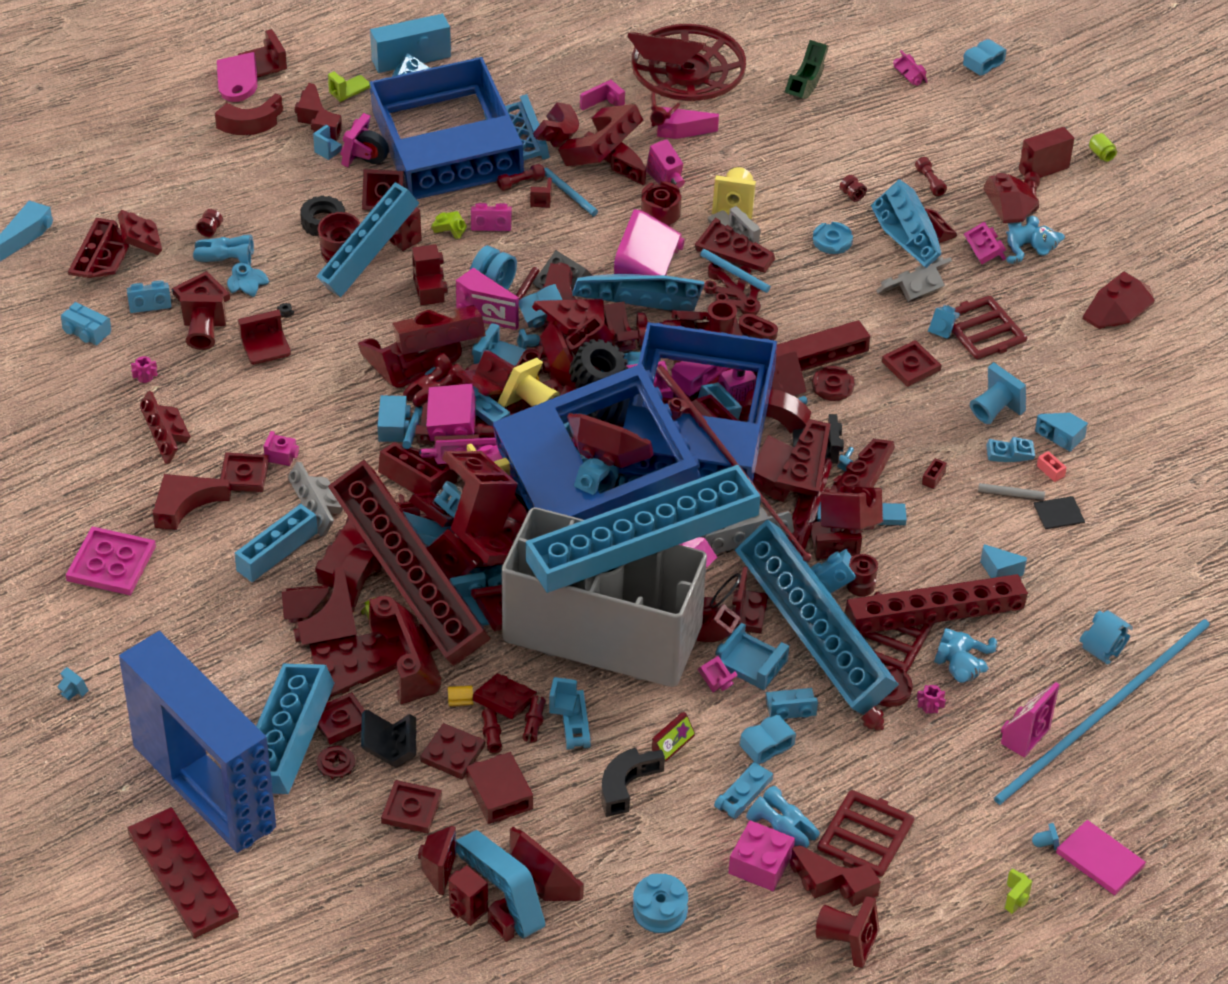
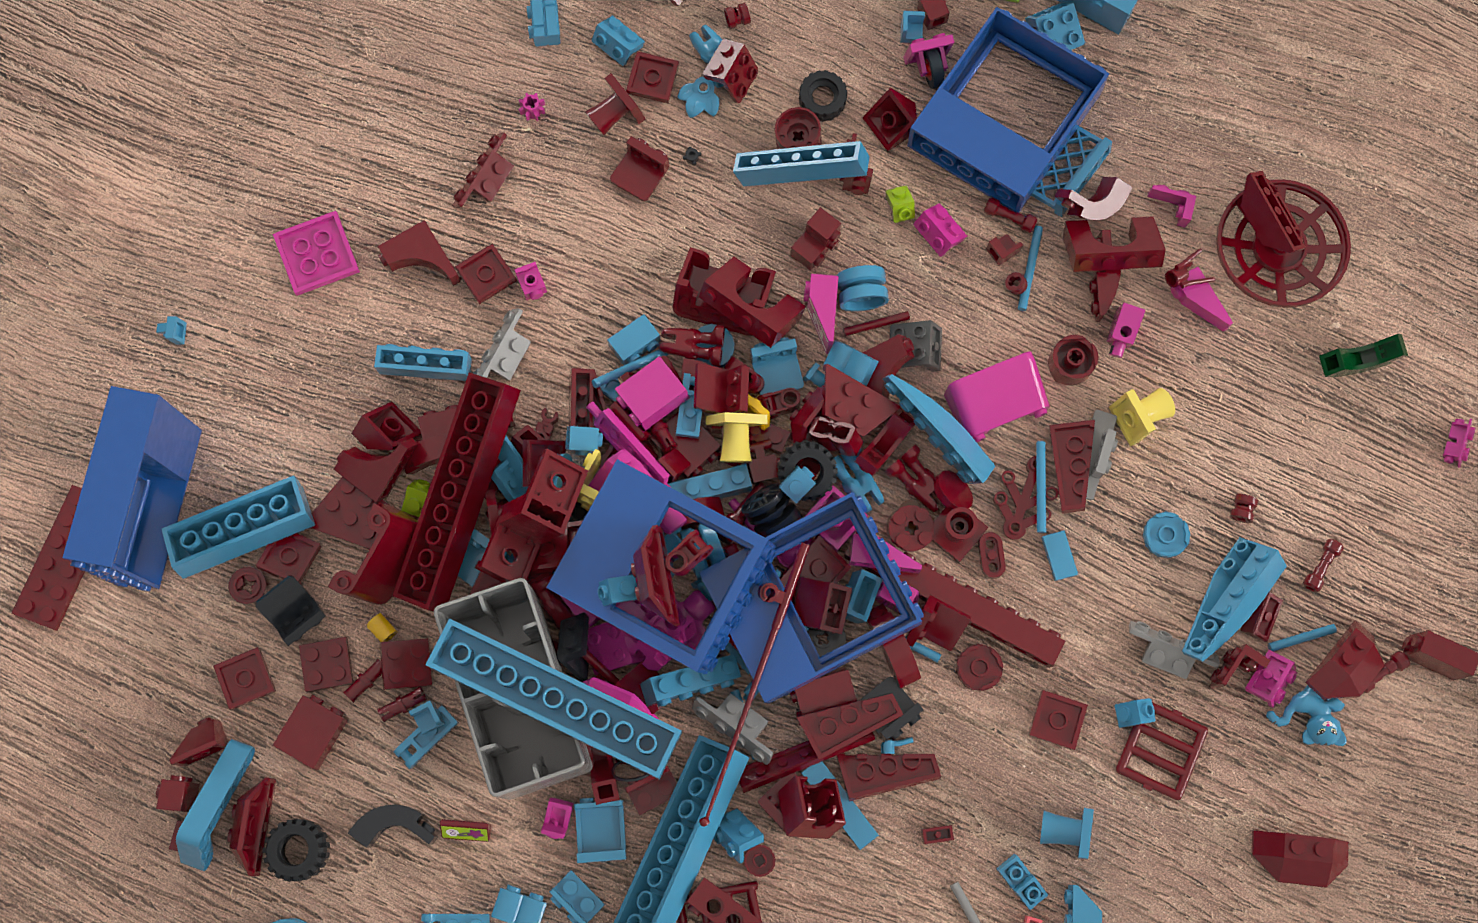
camera: 50 degrees right, 30 degrees up
(245, 240) = (733, 68): none -> dark red bracket
(437, 470) = (583, 439): none -> dark azure brick
(578, 205) = (1011, 287): none -> dark red bush
(593, 833) = (276, 850): none -> black tyre
(604, 367) = (798, 483): none -> dark azure bracket
(607, 409) = (689, 553): none -> dark red piece
(793, 296) = (1059, 555): none -> dark azure tile
(960, 246) = (1242, 657): none -> dark red bracket
(971, 216) = (1301, 638): none -> dark azure bar

